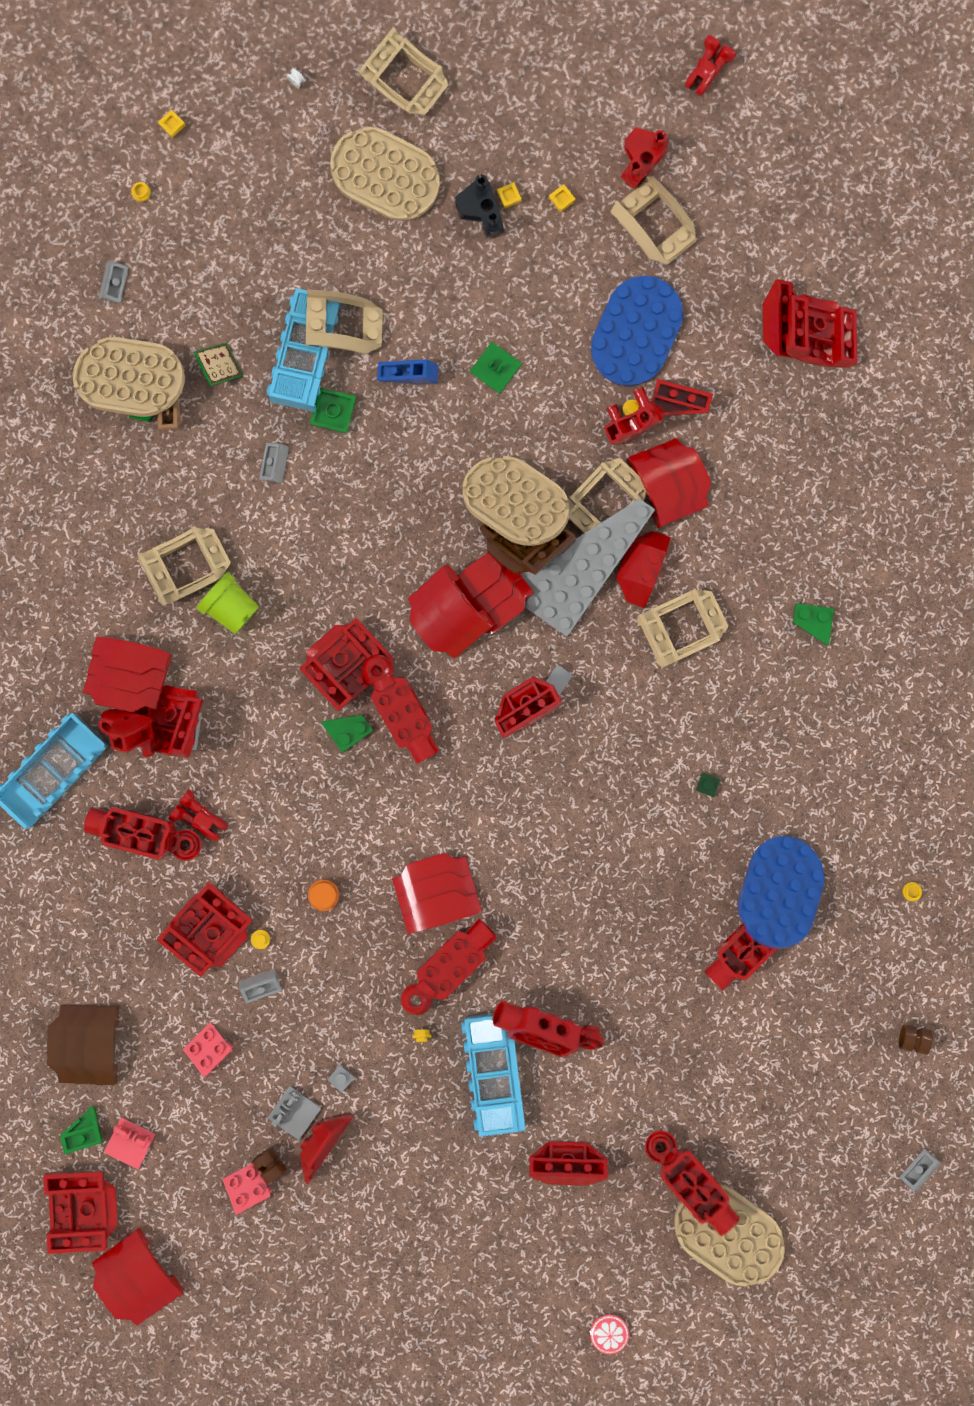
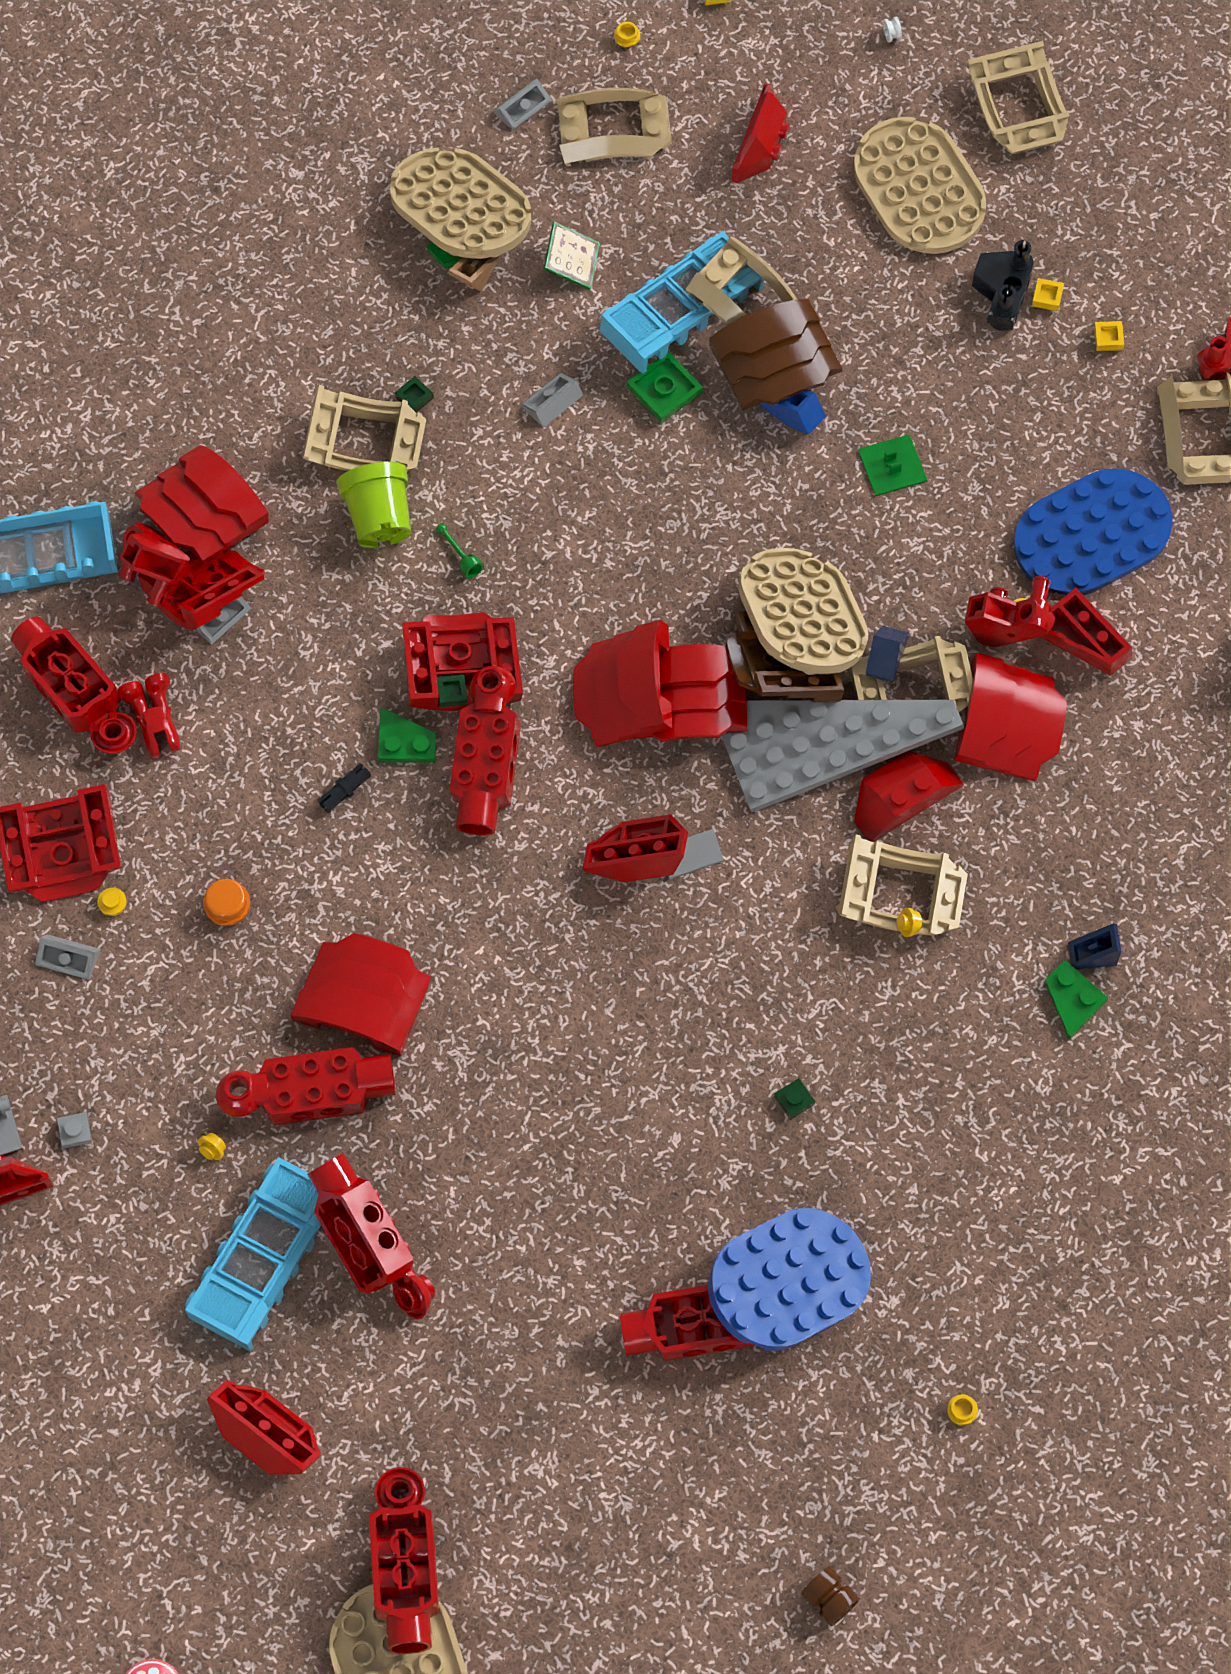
camera: 35 degrees right, 20 degrees down
(155, 275) = (575, 134): none -> tan wedge
(194, 517) = (415, 393): none -> dark green plate
(271, 205) = (762, 137): none -> red wedge
(304, 600) = (470, 564): none -> green hinge
(336, 782) = (344, 787): none -> black pin
(355, 686) = (452, 691): none -> dark green plate
(385, 348) = (774, 353): none -> reddish brown slope
(579, 491) = (886, 653): none -> dark blue slope
(703, 645) = (909, 922): none -> yellow plate
(809, 585) = (1096, 948): none -> dark blue slope

